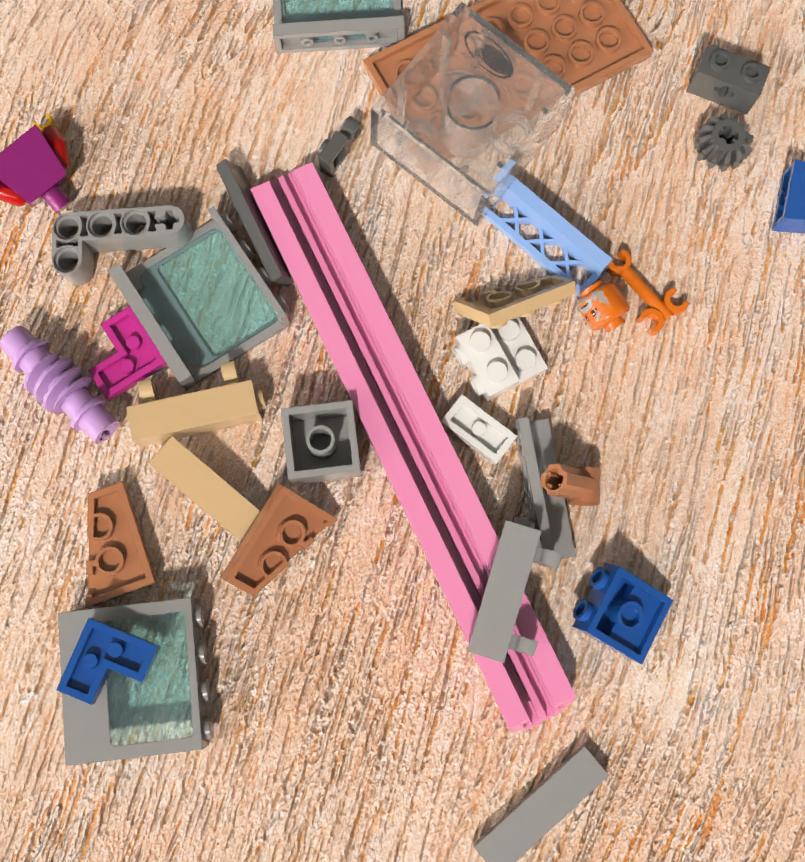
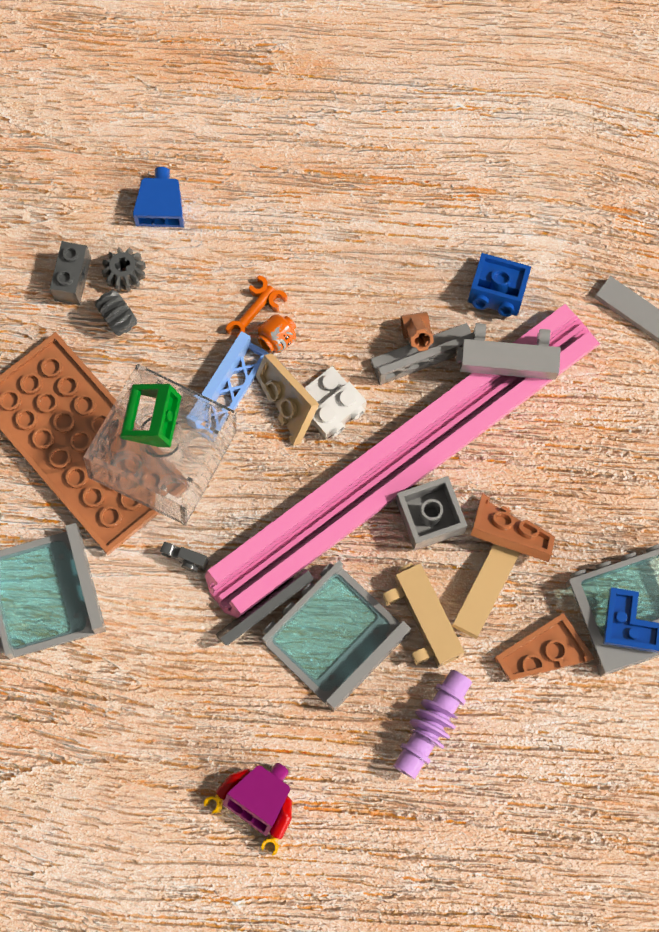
camera: 100 degrees left, 5 degrees down
(135, 358) = (396, 674): dark pink plate -> none
(164, 229) = (299, 708): light grey beam -> none
(478, 429) = (391, 406): white plate -> none
(496, 99) = (163, 416): none -> green tile
(665, 118) = (116, 312): none -> dark grey gear

